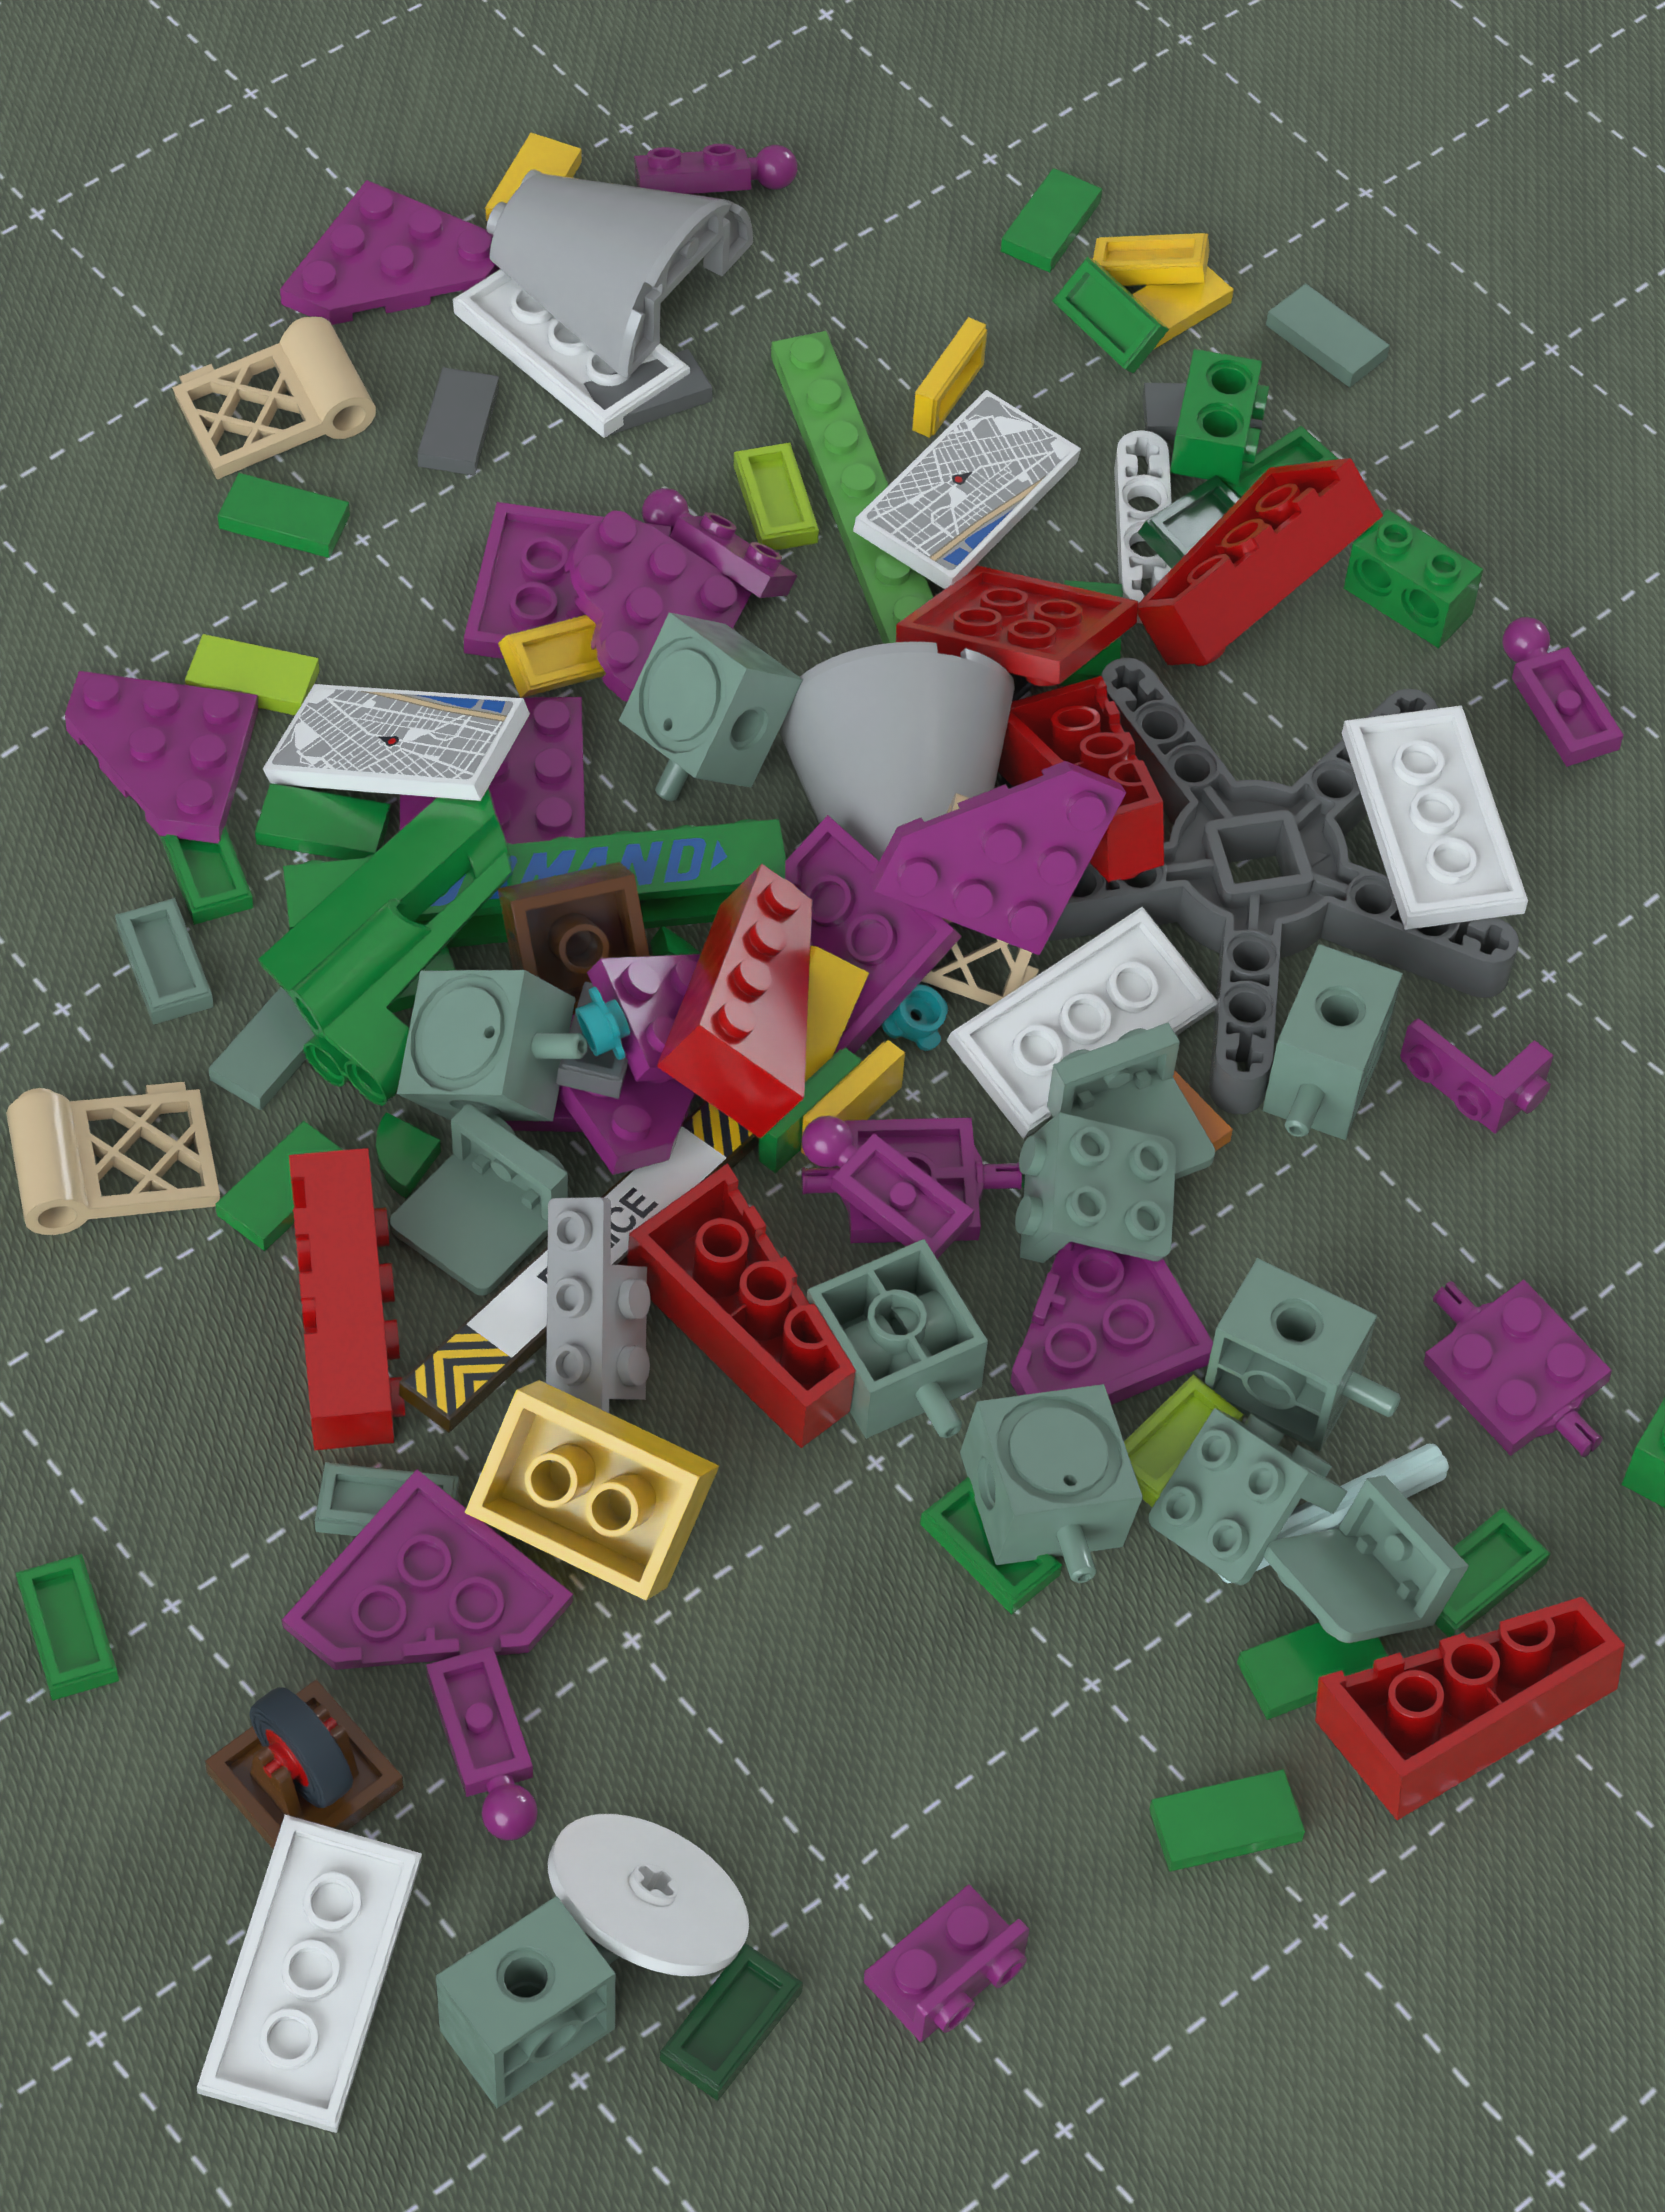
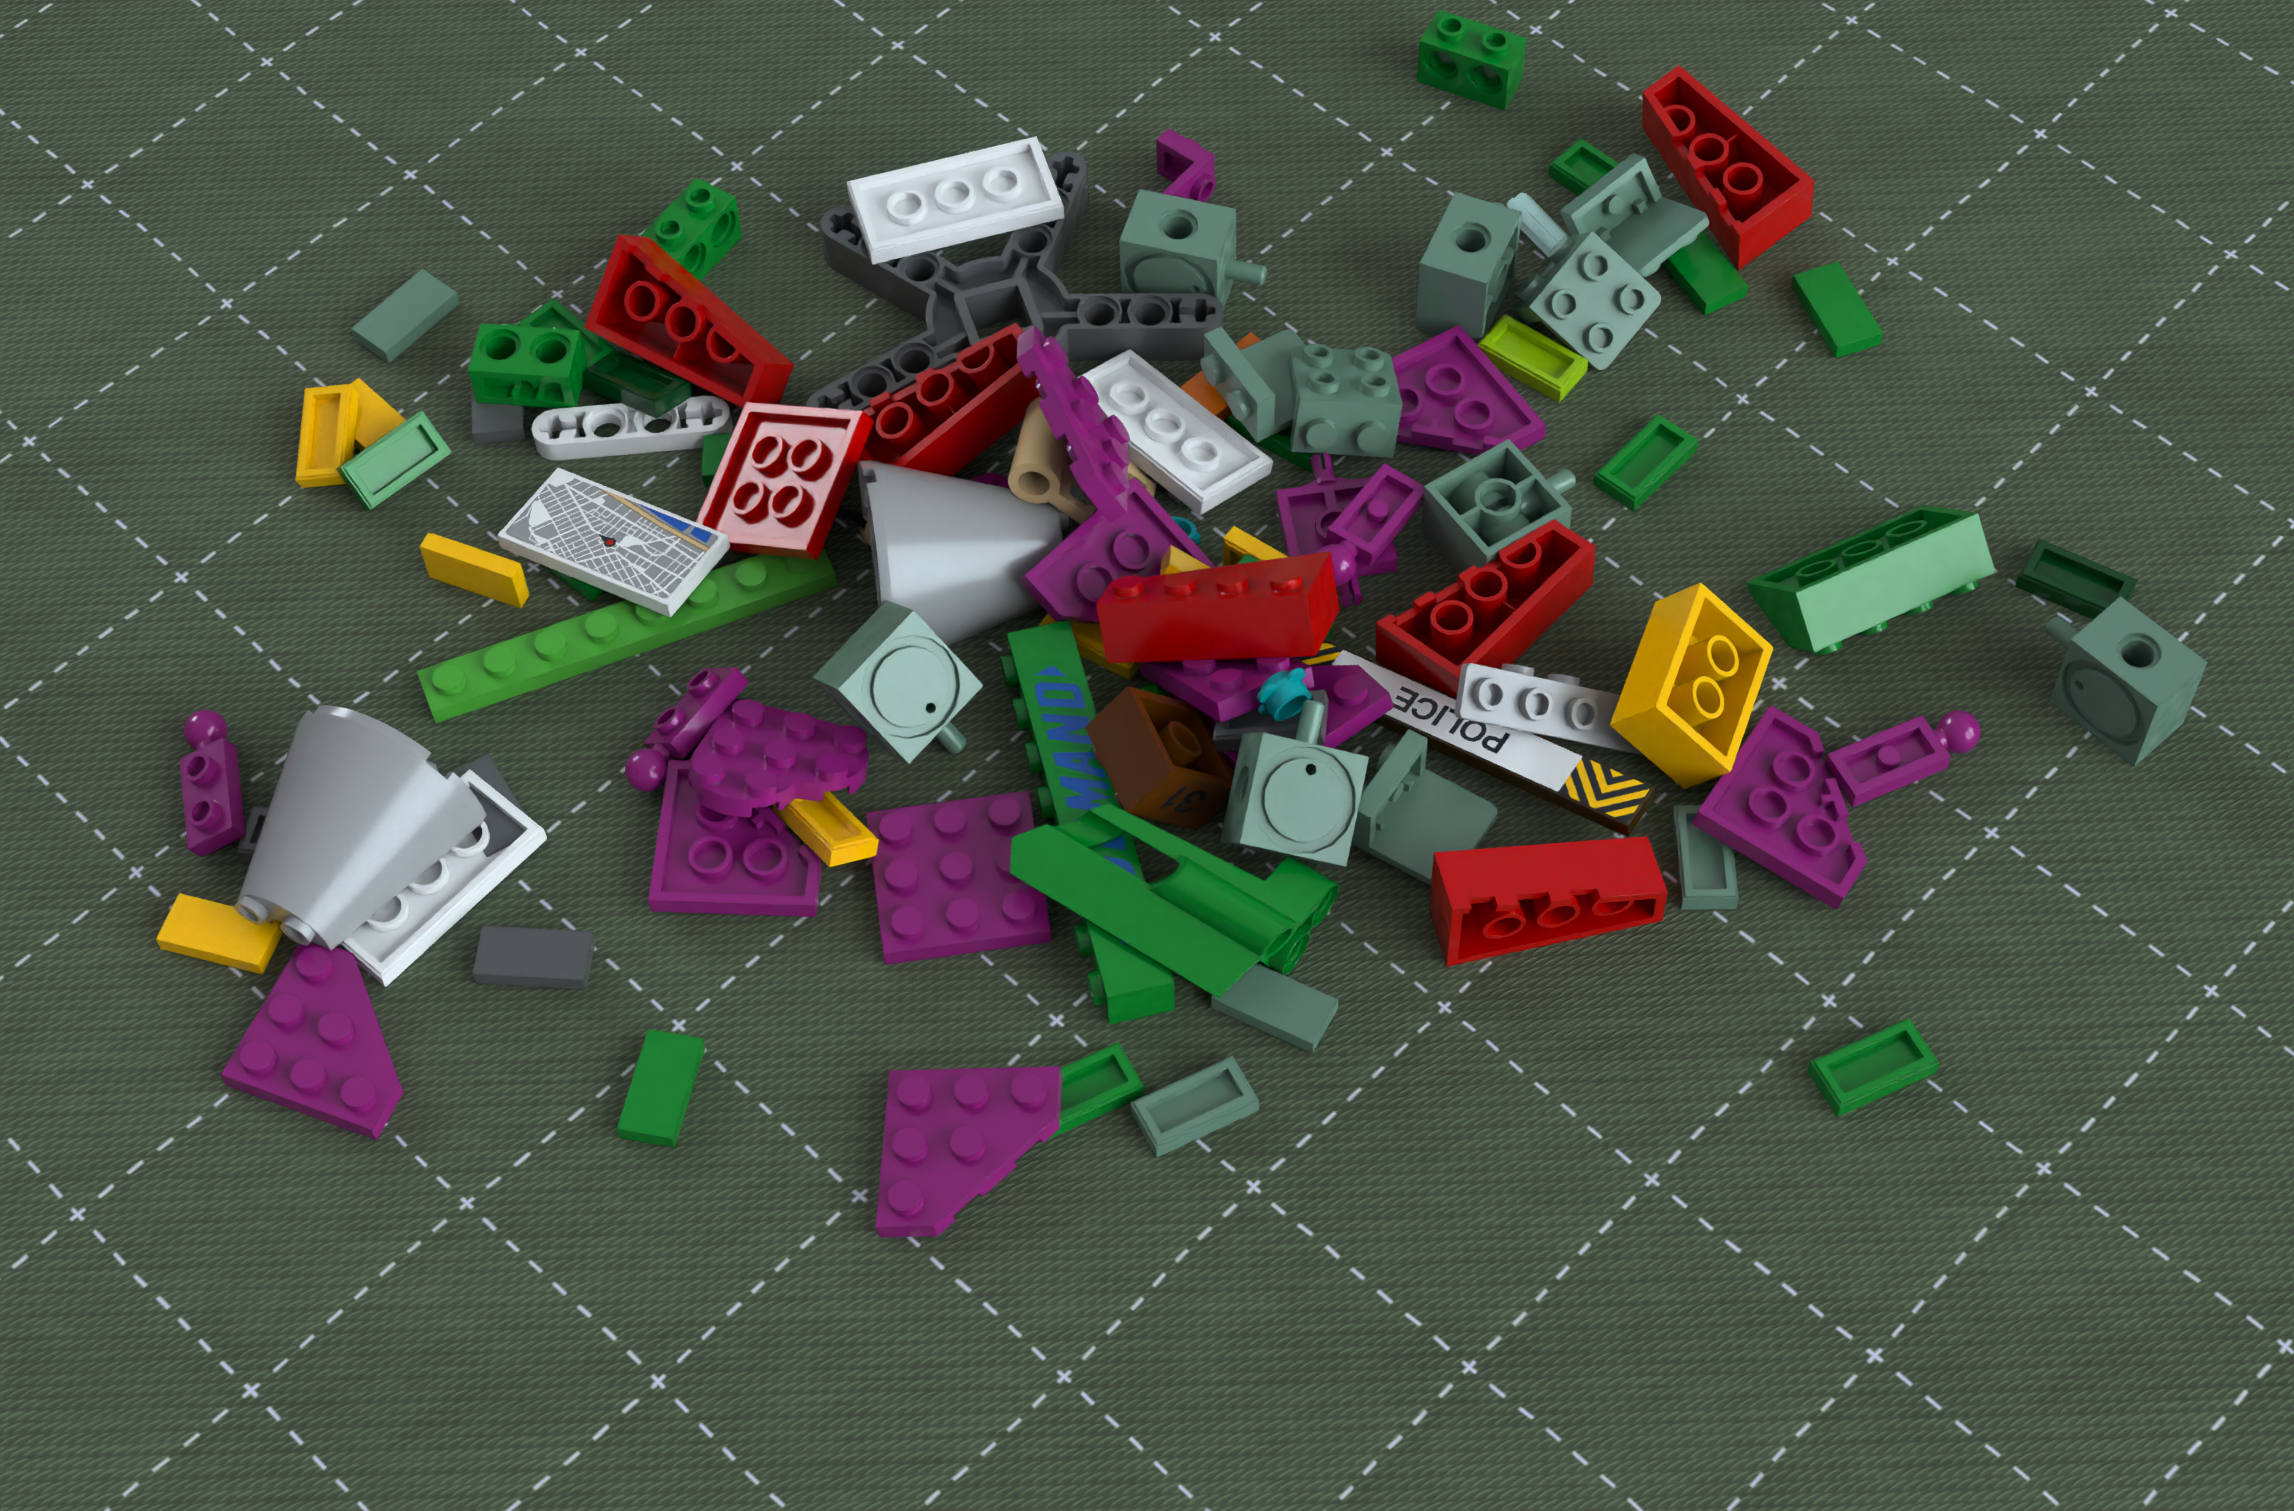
camera: 90 degrees left, 0 degrees up
(58, 1161) = (1426, 1145): tan piece -> none
(263, 1199) = (1417, 973): green tile -> none
(274, 675) = (859, 1085): lime tile -> none
(303, 1763) = (1967, 867): reddish brown plate -> none
(309, 1974) = (2131, 838): white tile -> none
(320, 387) = (488, 1080): tan piece -> none
(321, 823) = (1026, 1001): green tile -> none
(397, 741) = (953, 930): tile -> none
(404, 1153) = (1369, 889): green tile -> none
(648, 1894) = (2017, 618): white piece -> none
(760, 1757) = (1874, 577): none -> slope
(776, 497) = (612, 697): lime tile -> none
(947, 1963) = (1998, 453): magenta bracket -> none
(1051, 220) = (268, 518): green tile -> none
(1051, 1477) = (1603, 407): sand green piece -> none
(1517, 1368) = (1427, 161): magenta plate -> none
(1559, 694) = (795, 150): magenta plate -> none

